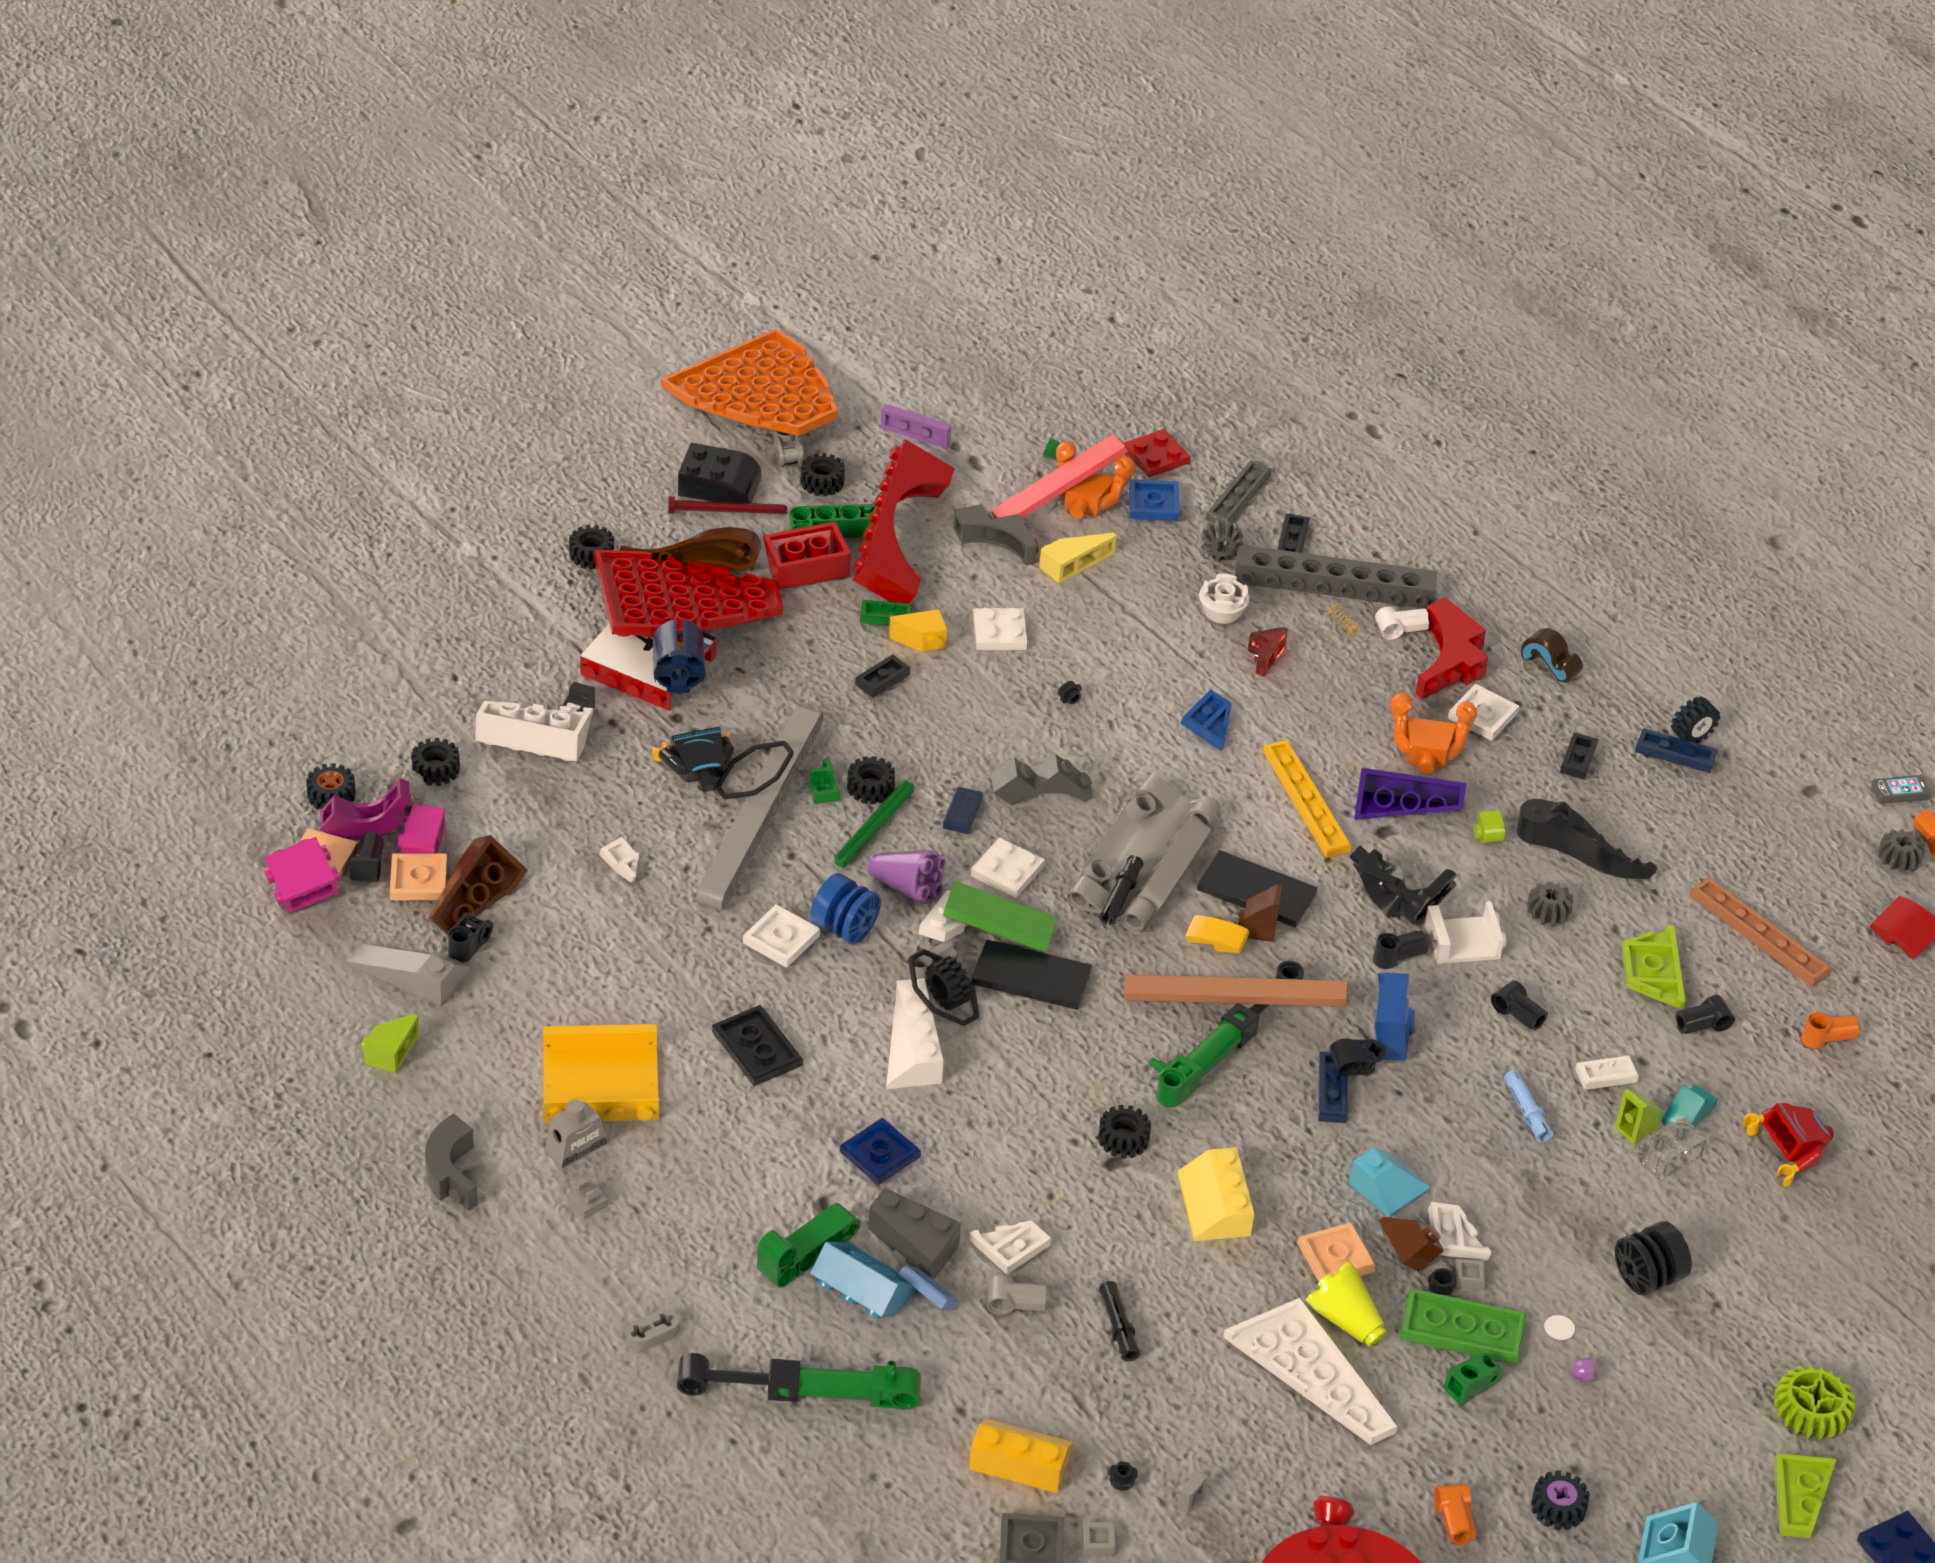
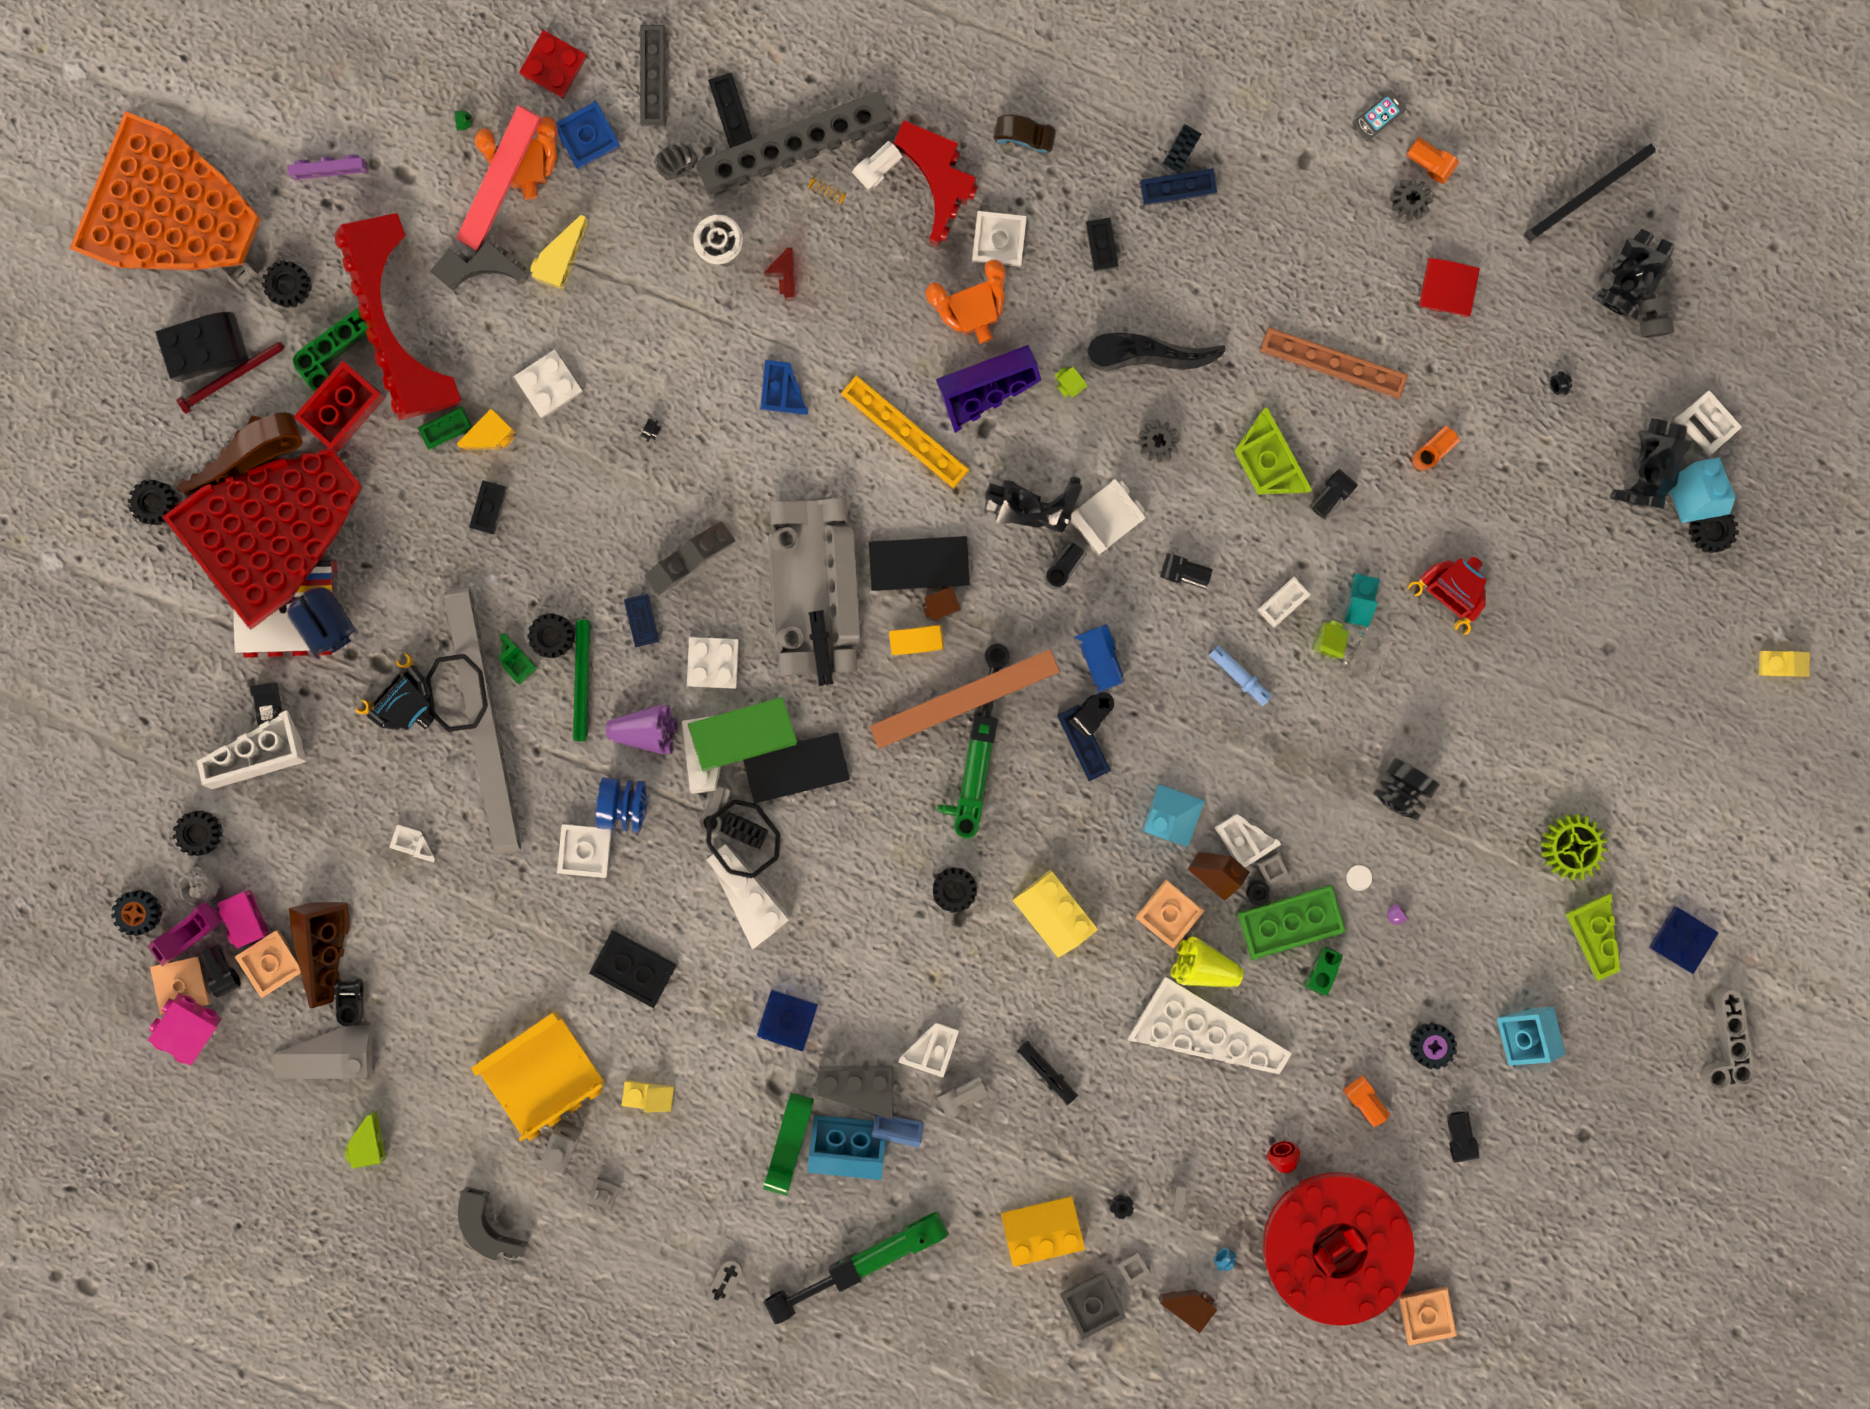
camera: 25 degrees left, 45 degrees up
(694, 1144) = (648, 1096): none -> light yellow slope

